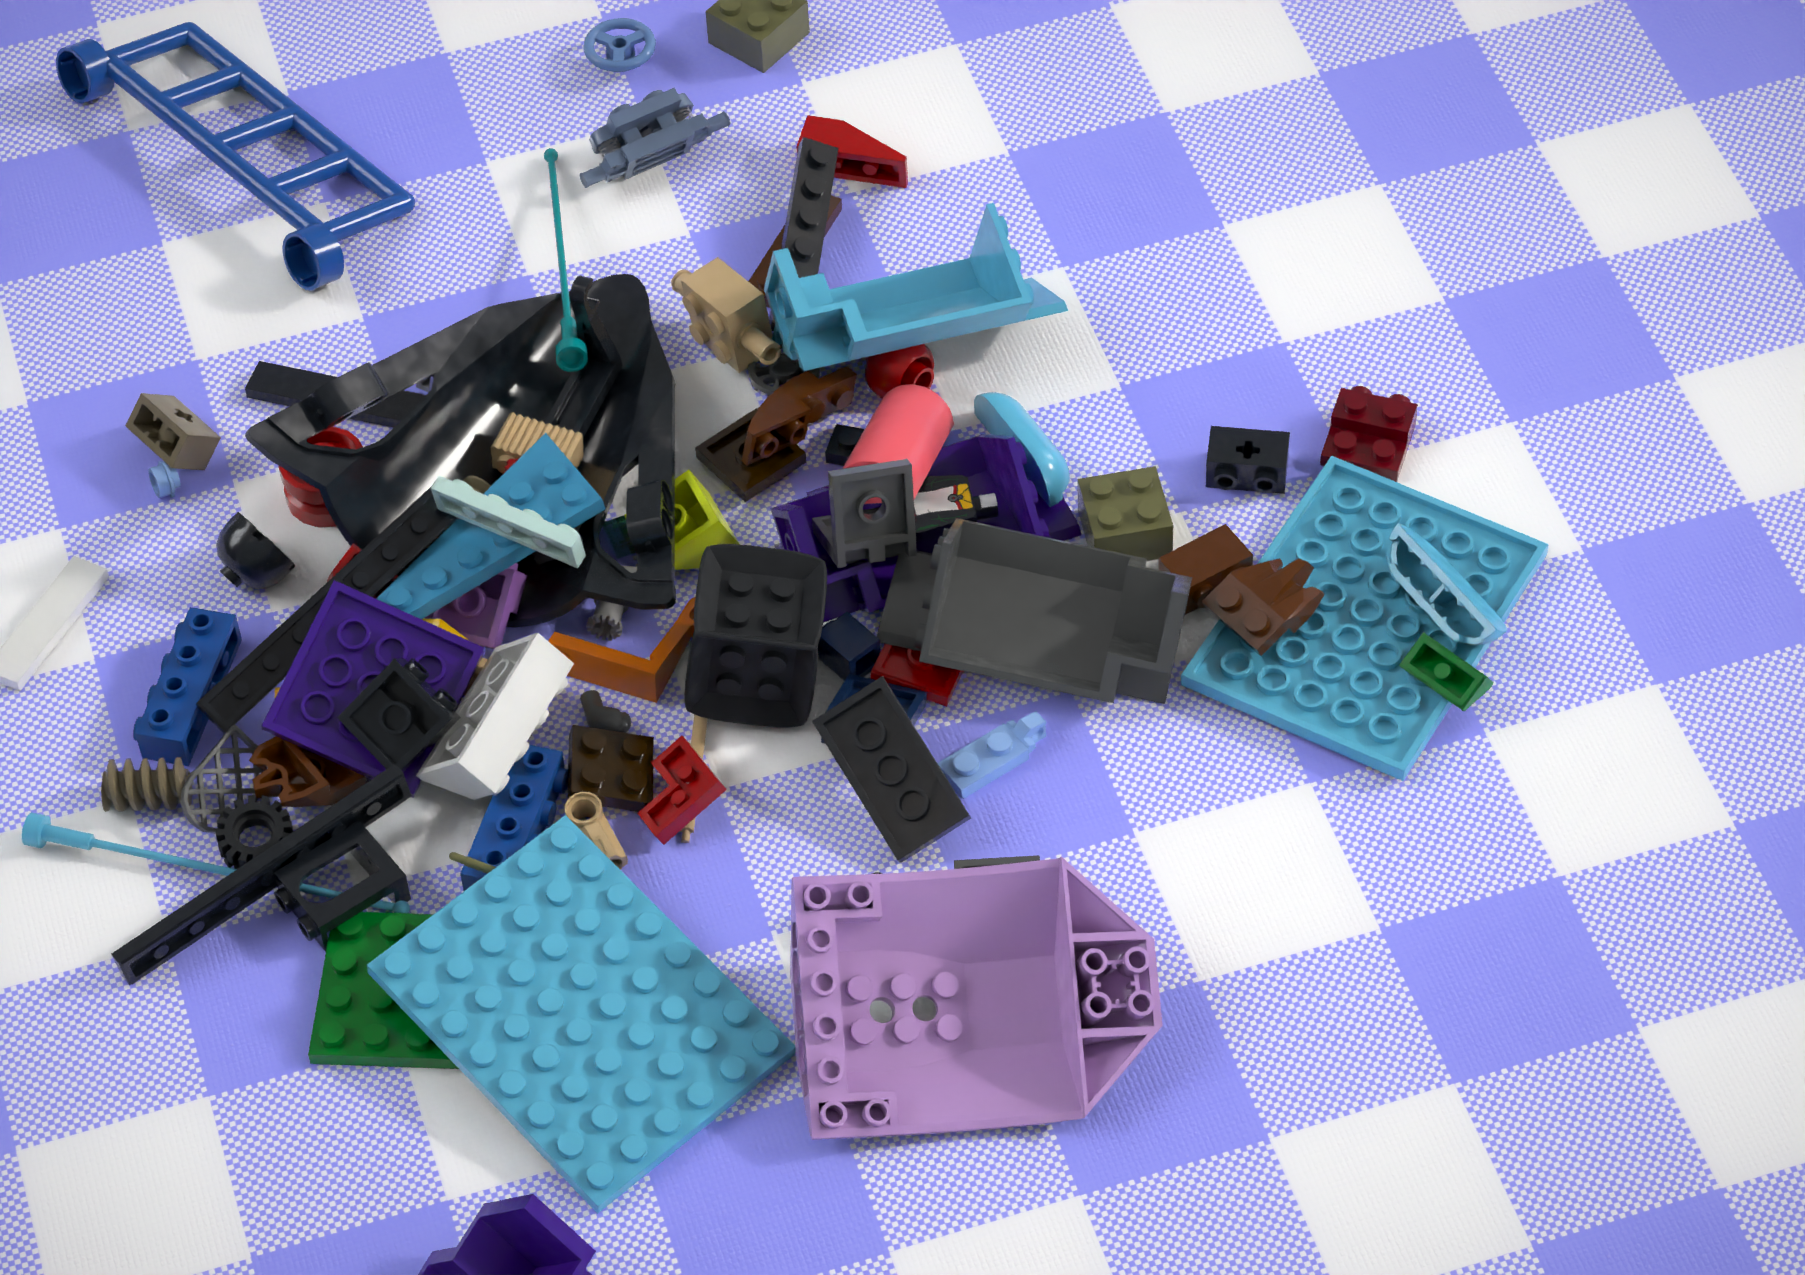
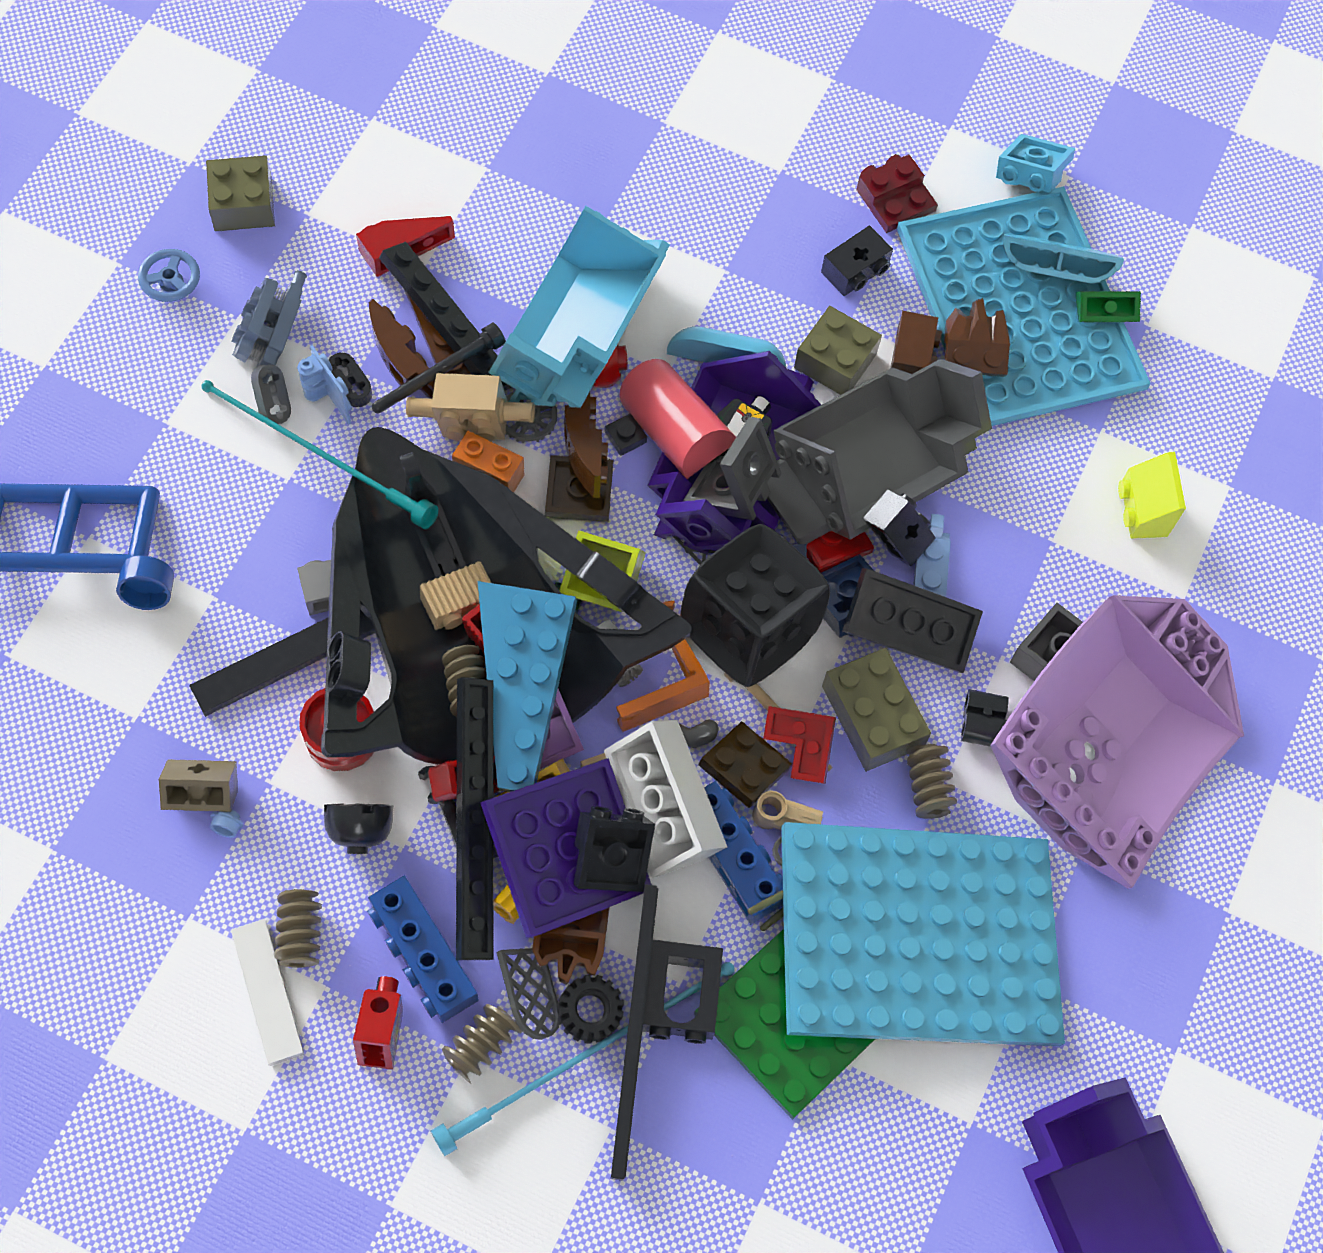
camera: 55 degrees left, 15 degrees up
(86, 705) = (379, 1025): none -> red torso
(116, 590) = (296, 928): none -> dark tan piece
(507, 521) = (532, 665): light aqua plate -> none
(575, 187) = (271, 393): none -> dark grey beam
(633, 209) = (319, 381): none -> light blue hinge
(663, 231) = (354, 376): none -> black beam
(695, 377) = (490, 459): none -> orange brick
(738, 226) = (397, 347): none -> reddish brown slope
(741, 266) = (489, 339): none -> black piece
(748, 911) = (929, 780): none -> dark tan piece
(775, 818) = (875, 709): none -> olive brick
(977, 710) = (900, 526): none -> black brick
(1265, 861) = (1152, 497): none -> neon yellow slope
(1542, 501) = (1034, 163): none -> medium azure plate

